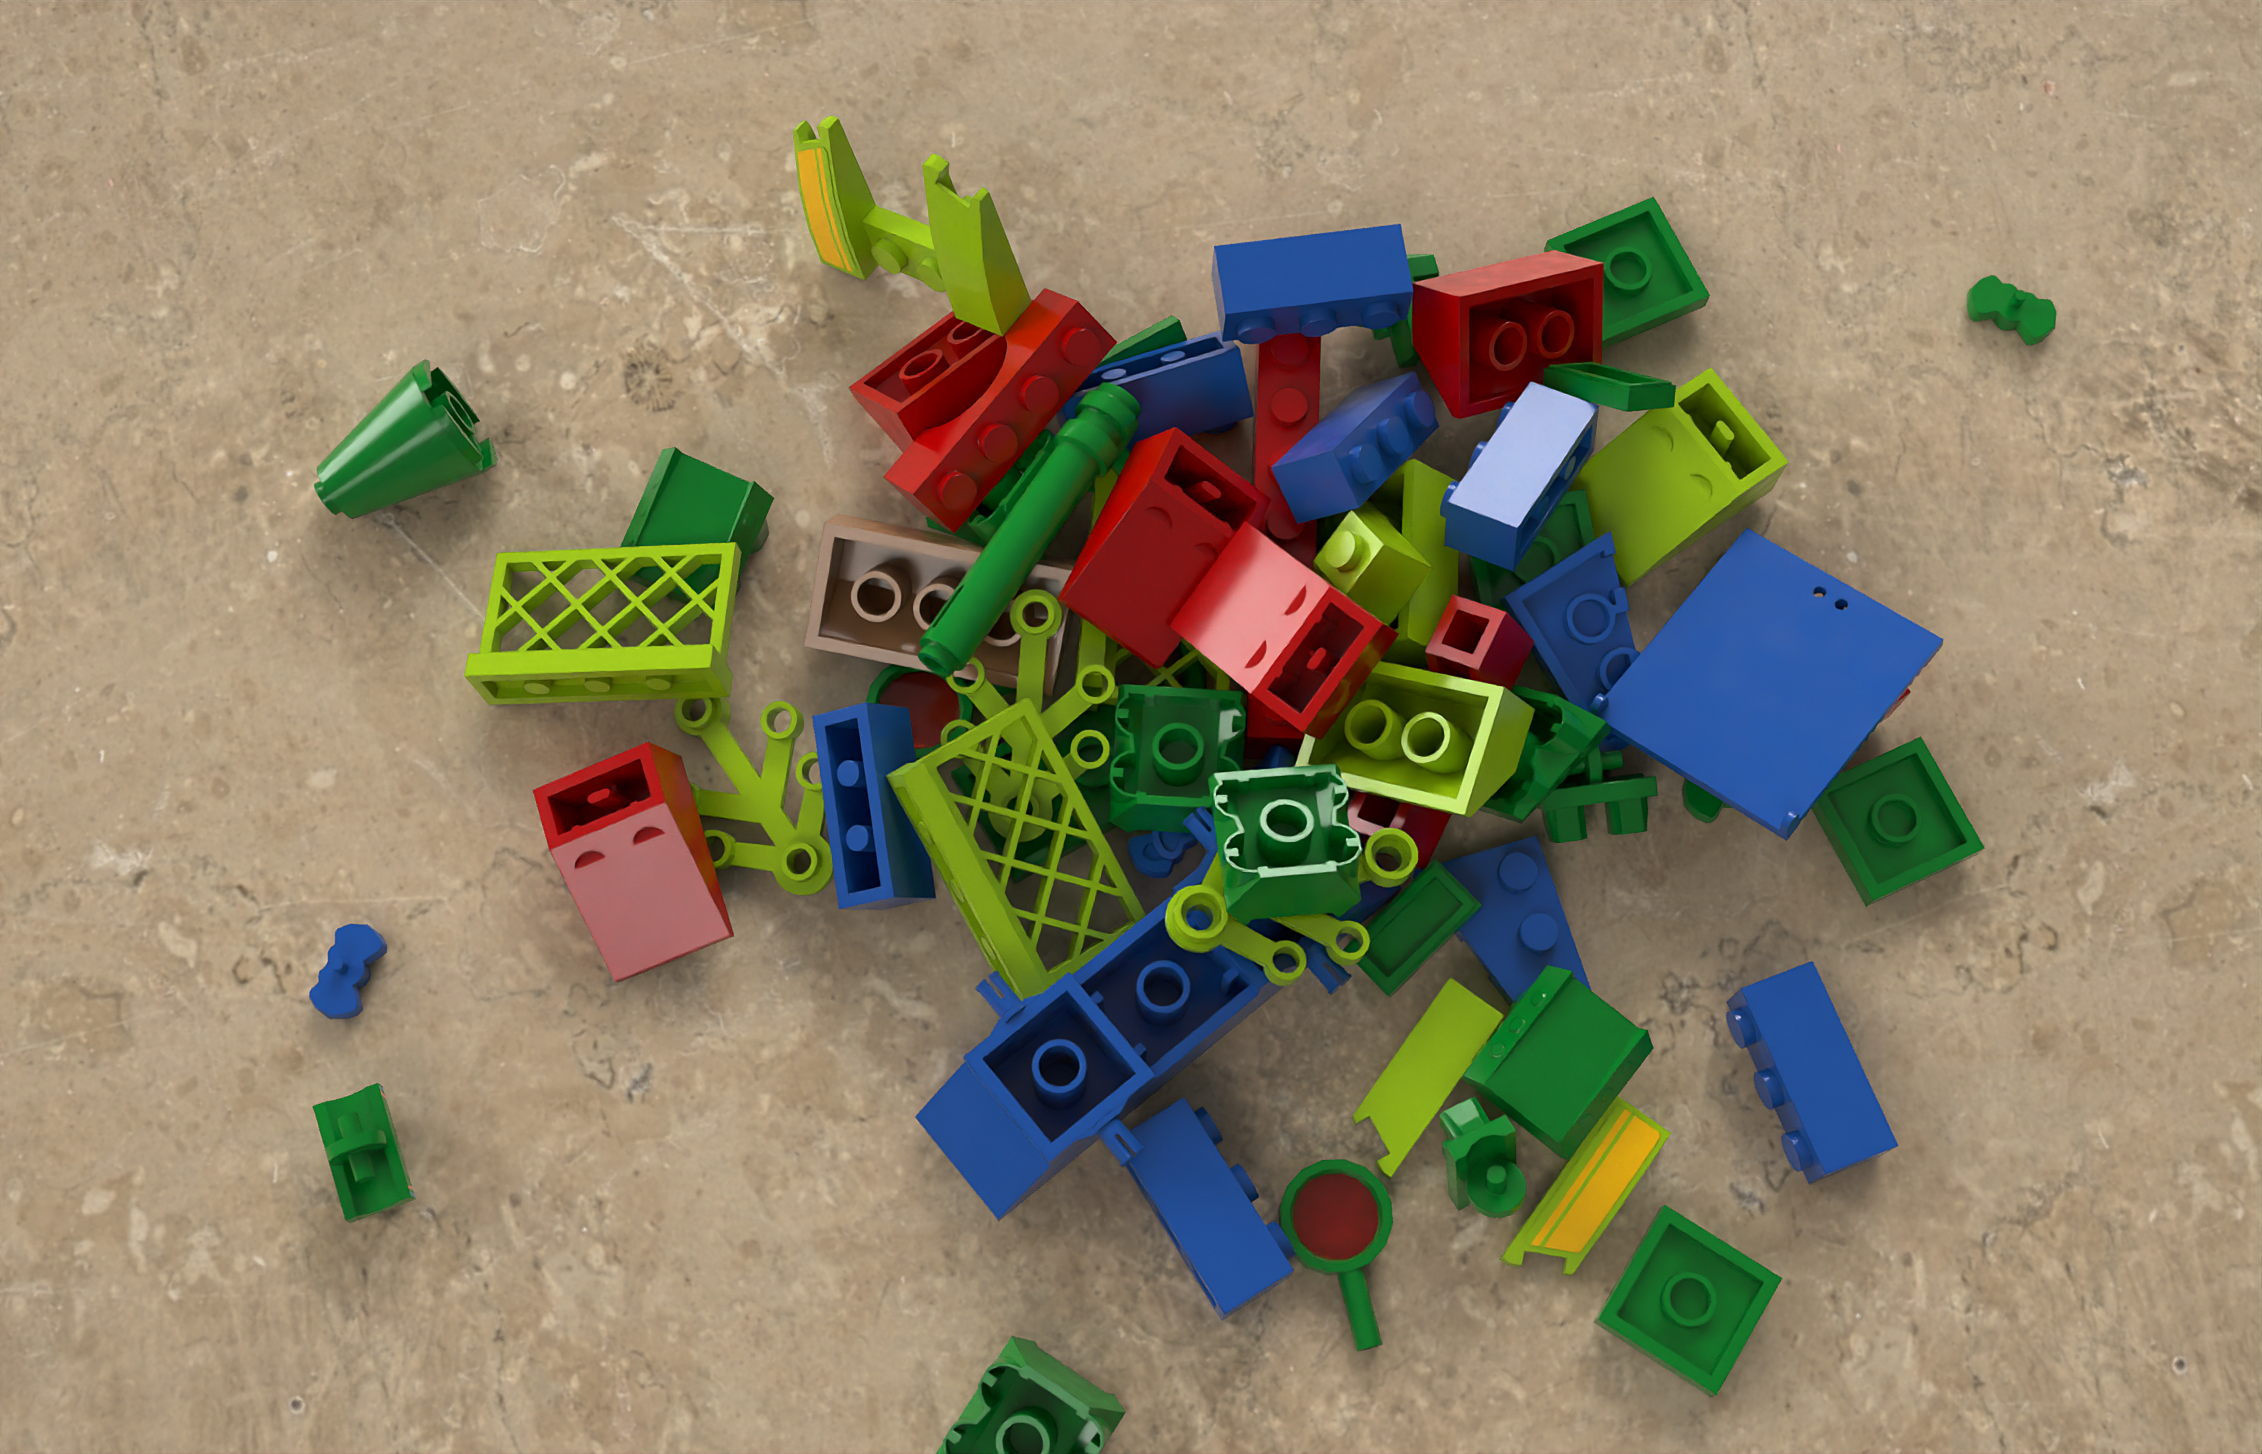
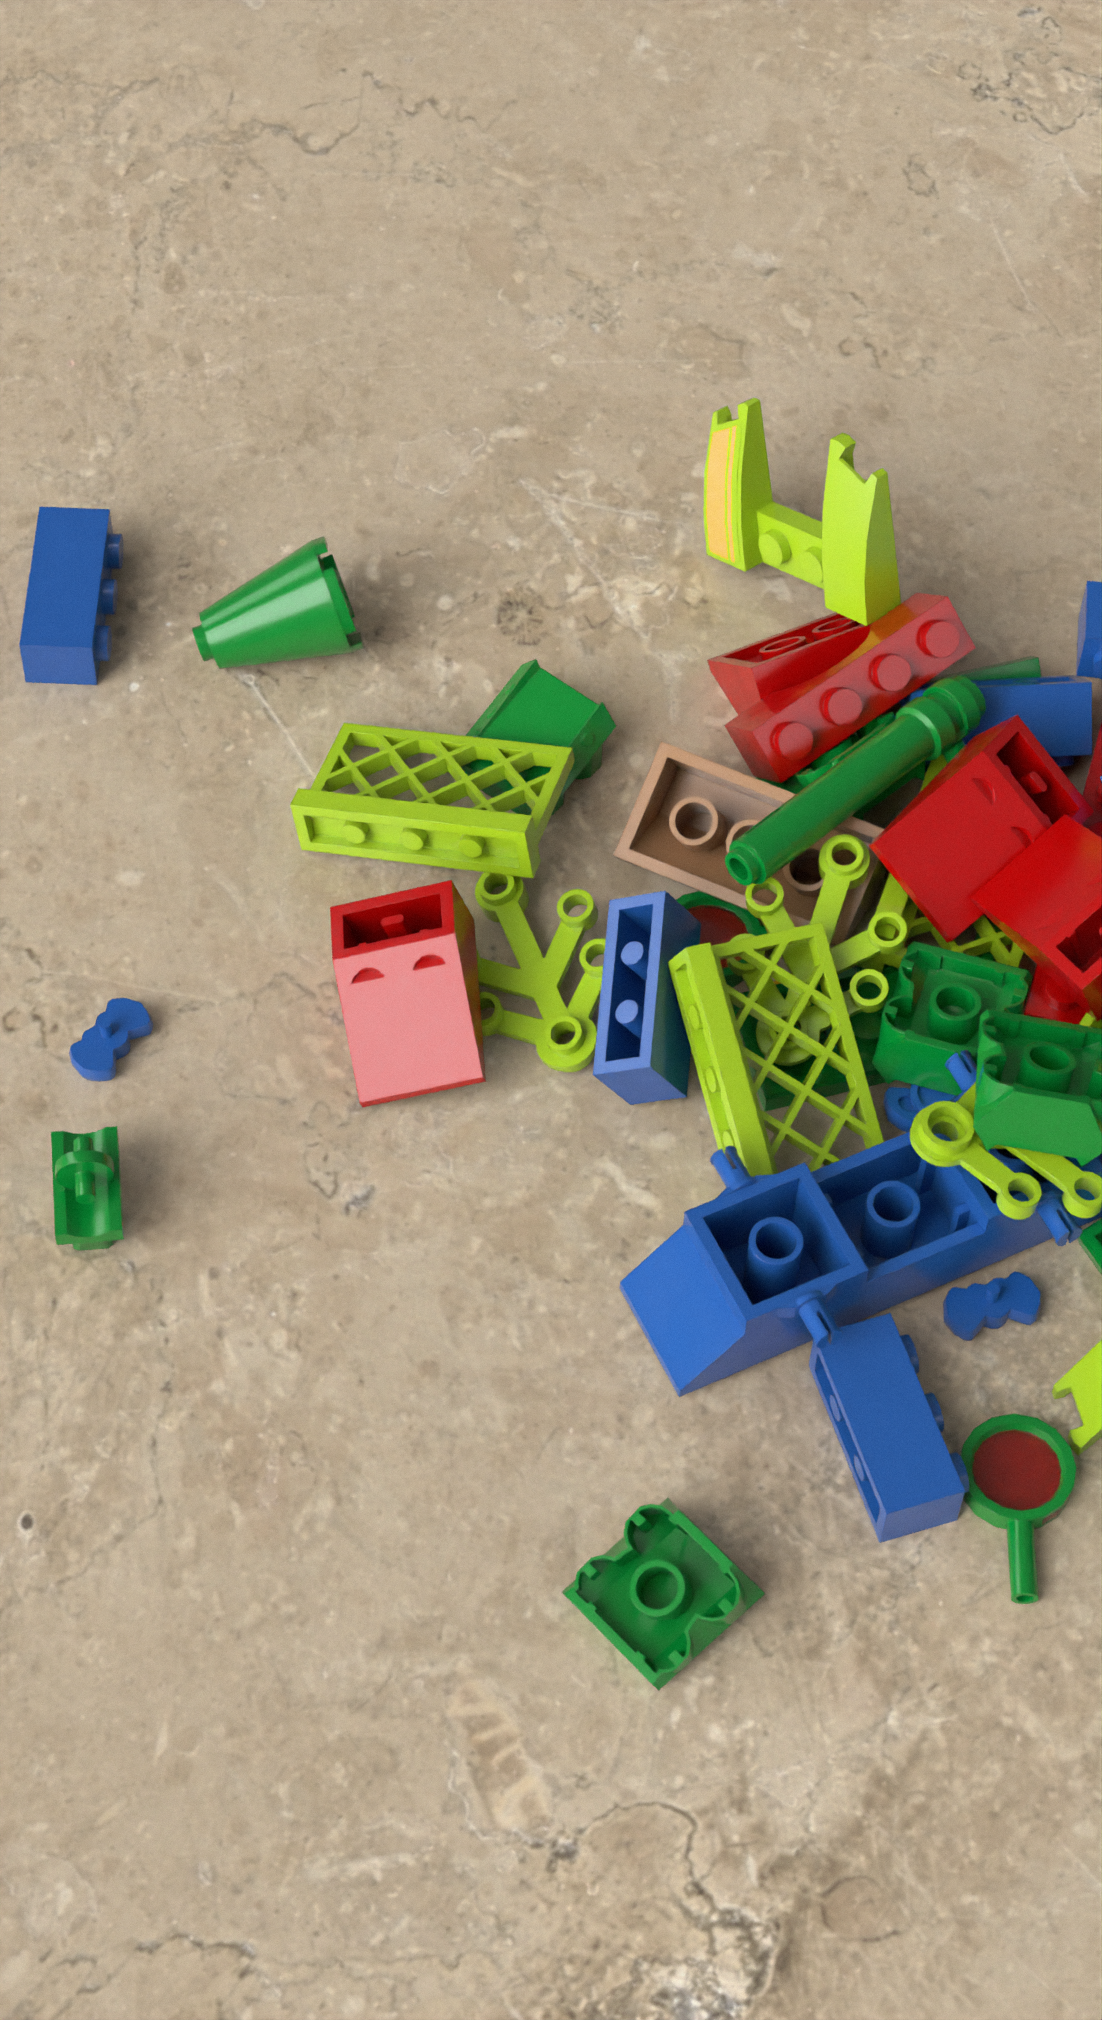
camera: 15 degrees right, 15 degrees down
(177, 473) = (70, 596): none -> blue brick
(1275, 1044) = (991, 1305): none -> blue piece

